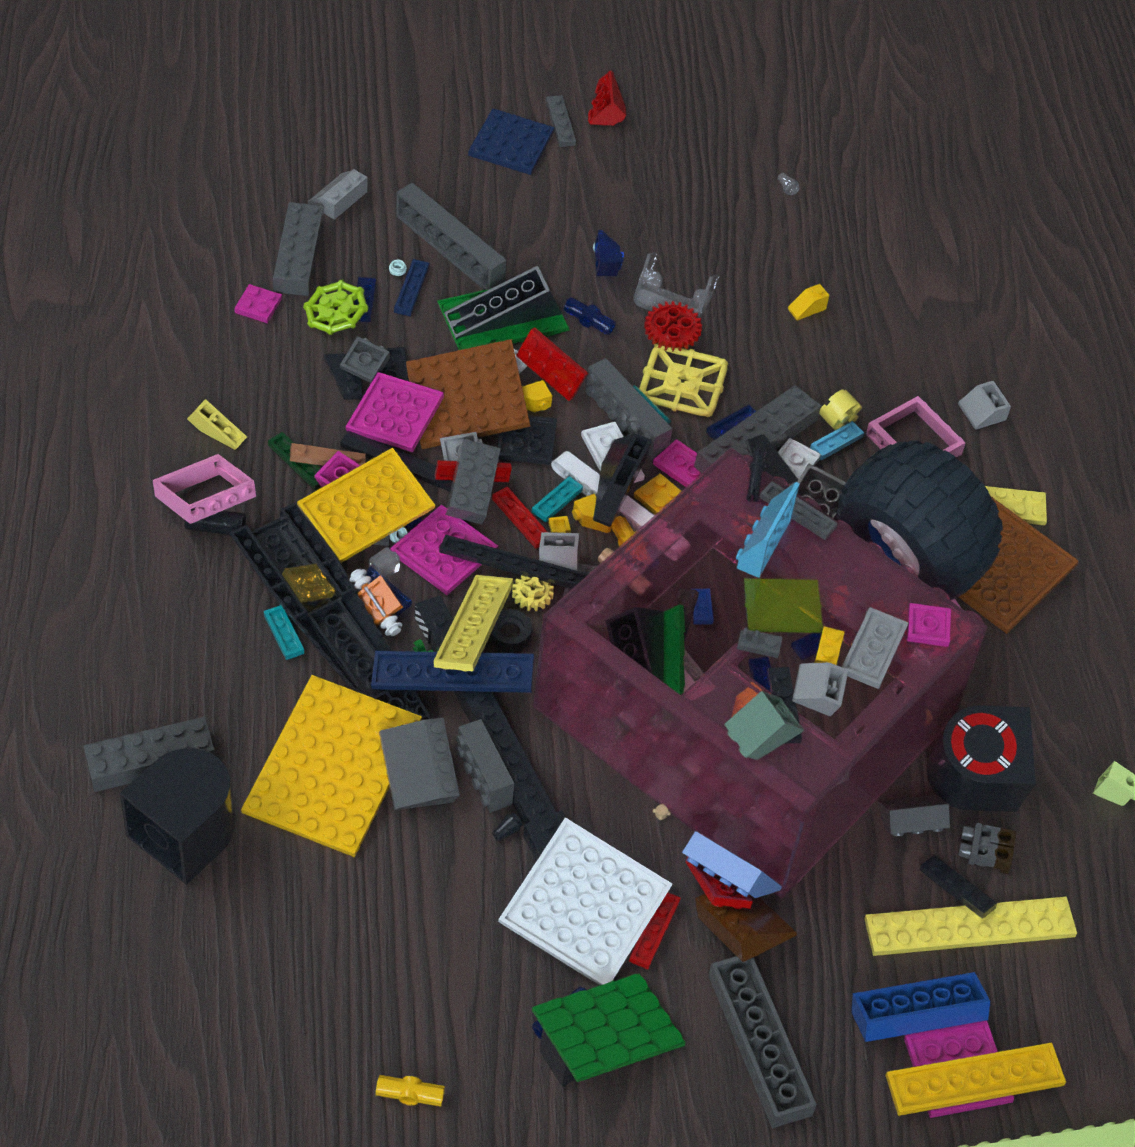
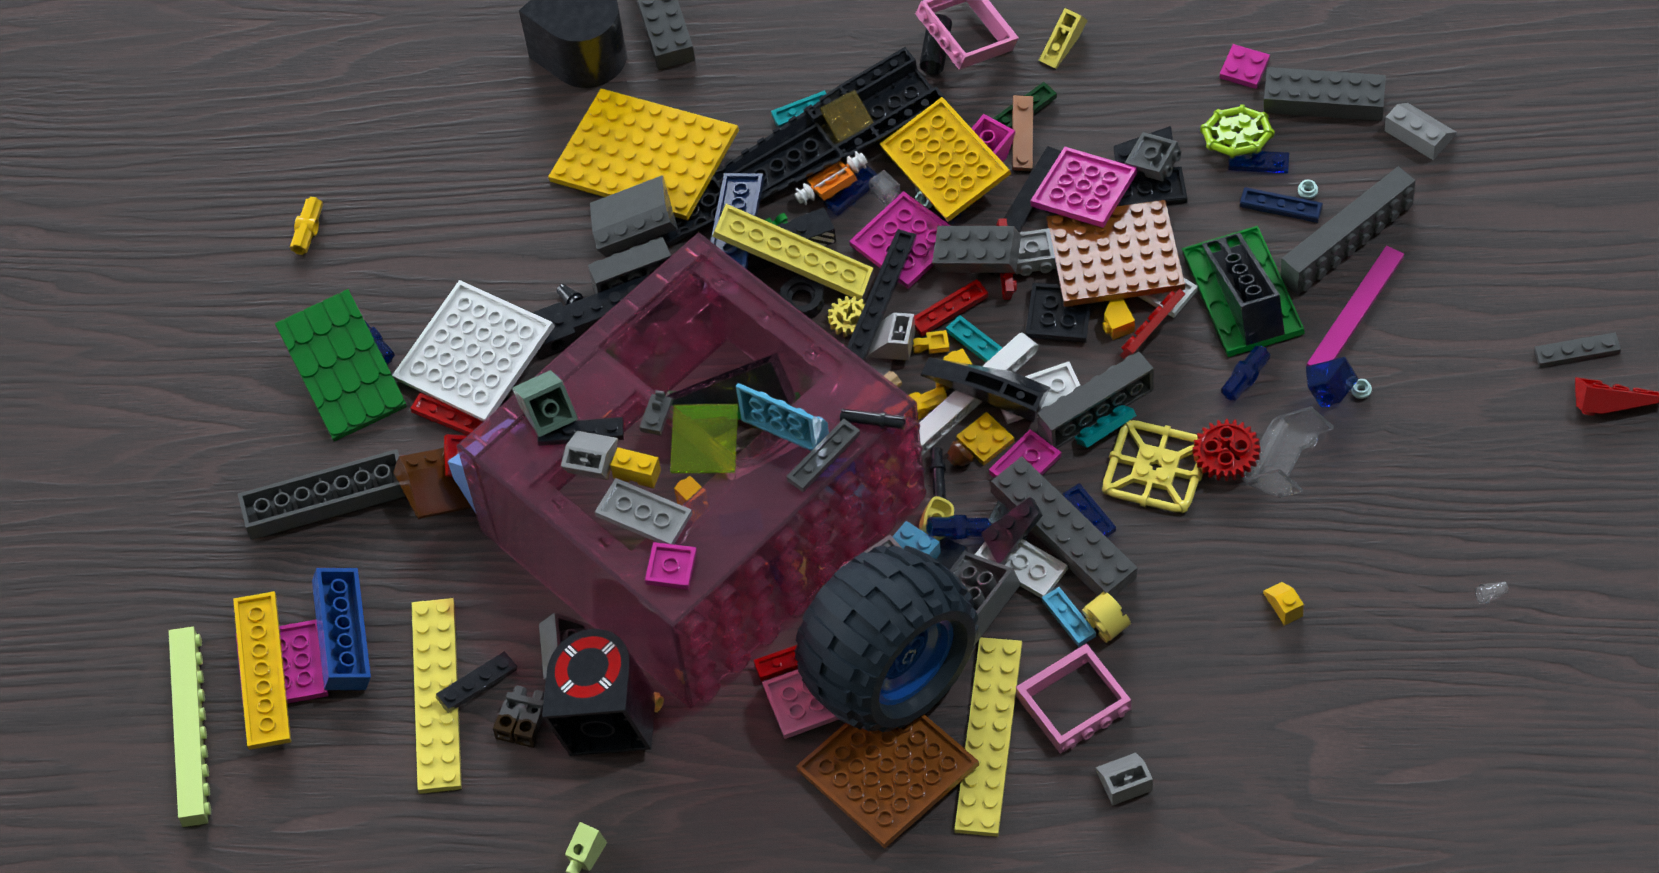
camera: 105 degrees right, 5 degrees up
(511, 141) = (1533, 298): dark blue plate -> none
(524, 247) = (1357, 306): none -> dark pink tile

